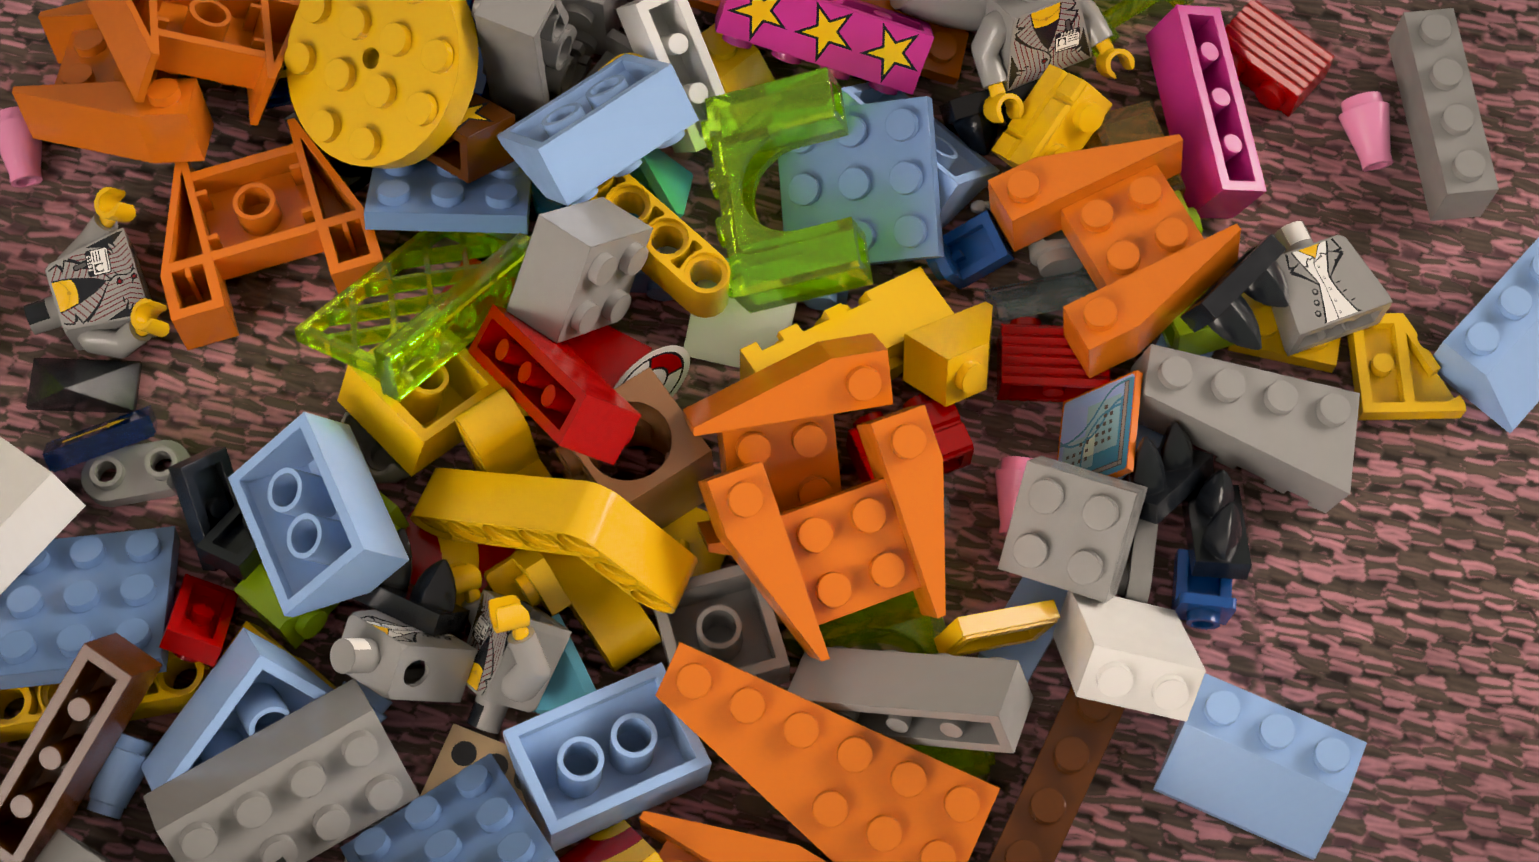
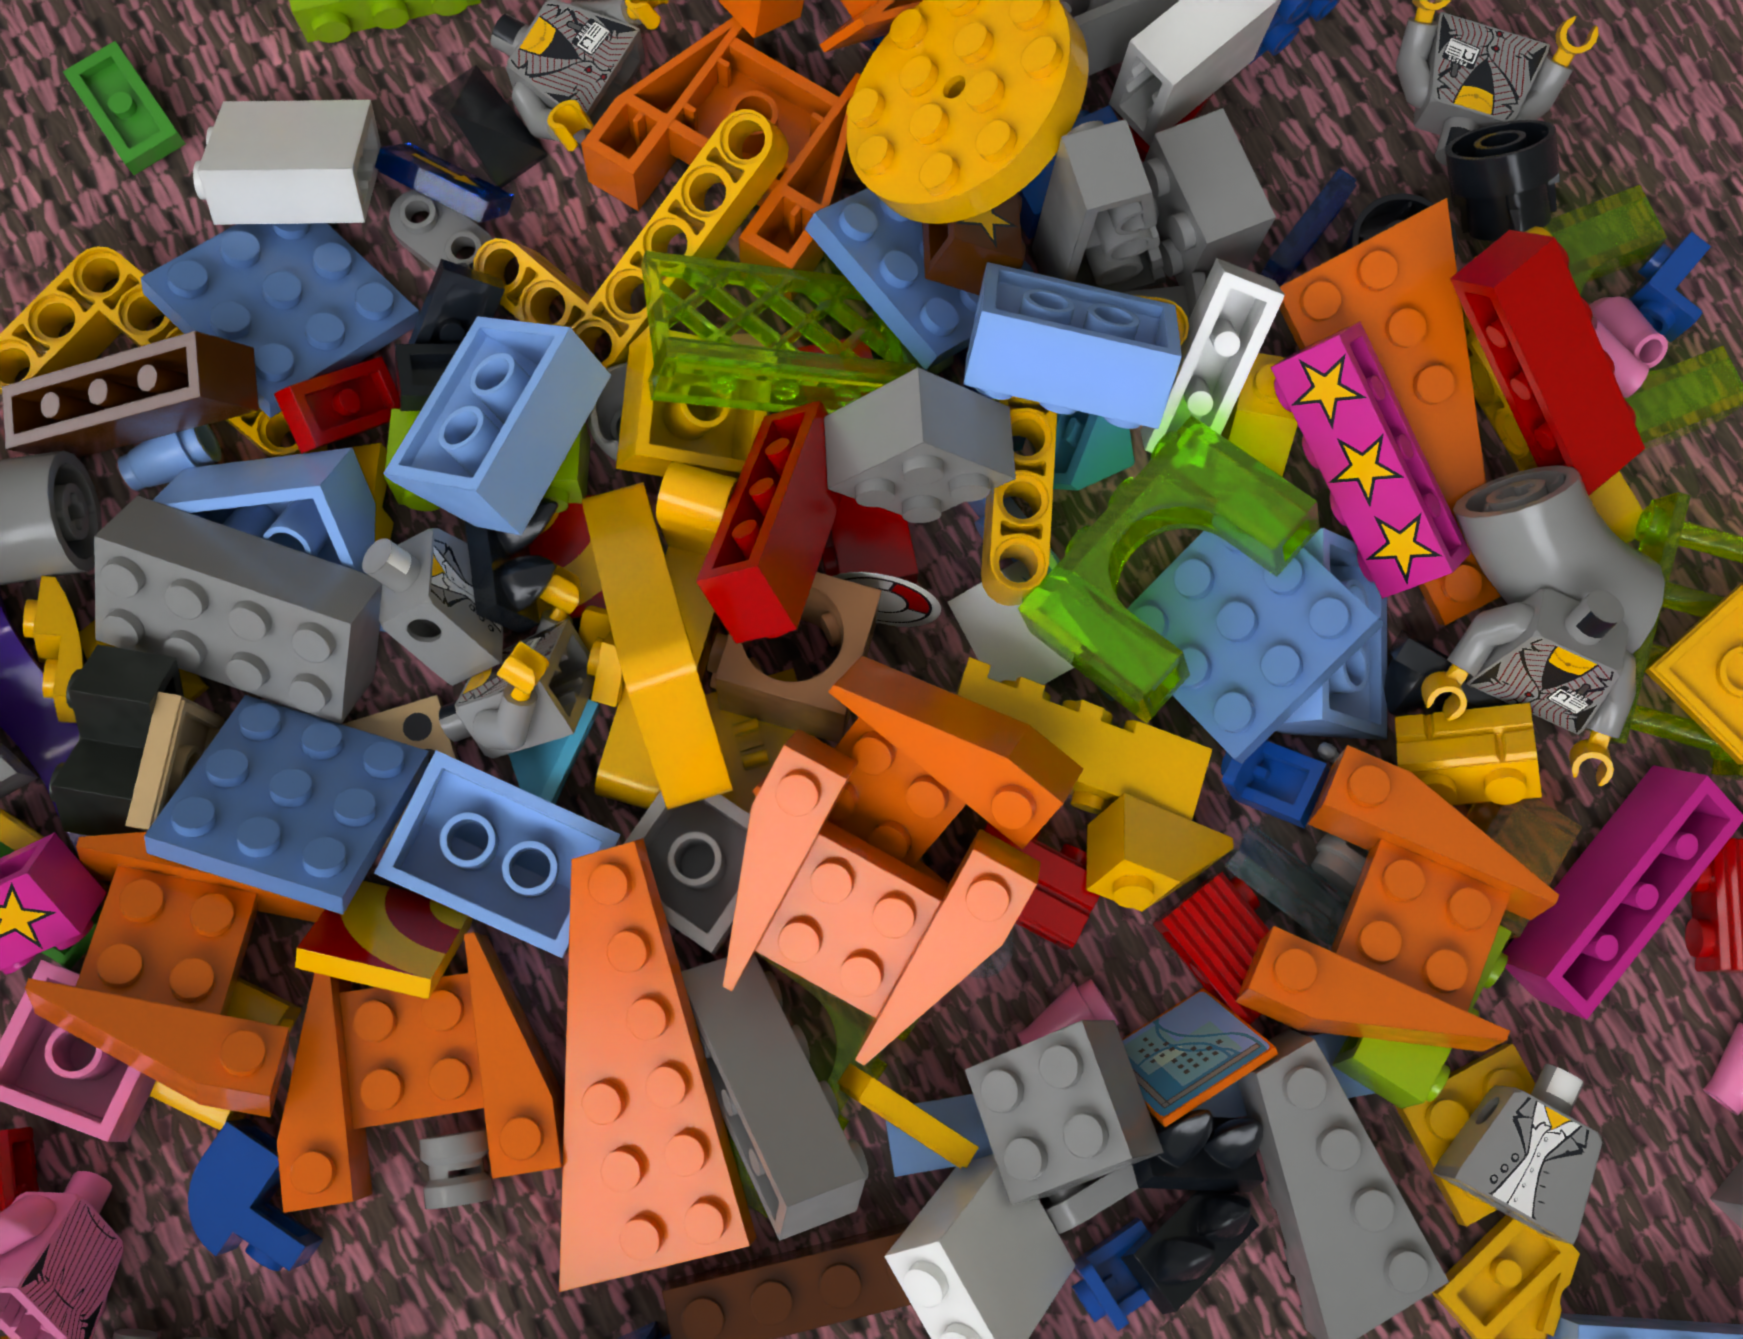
camera: 45 degrees right, 10 degrees up
(282, 297) = (680, 212): none -> yellow beam
(1224, 306) = (1419, 1076): black tile -> none

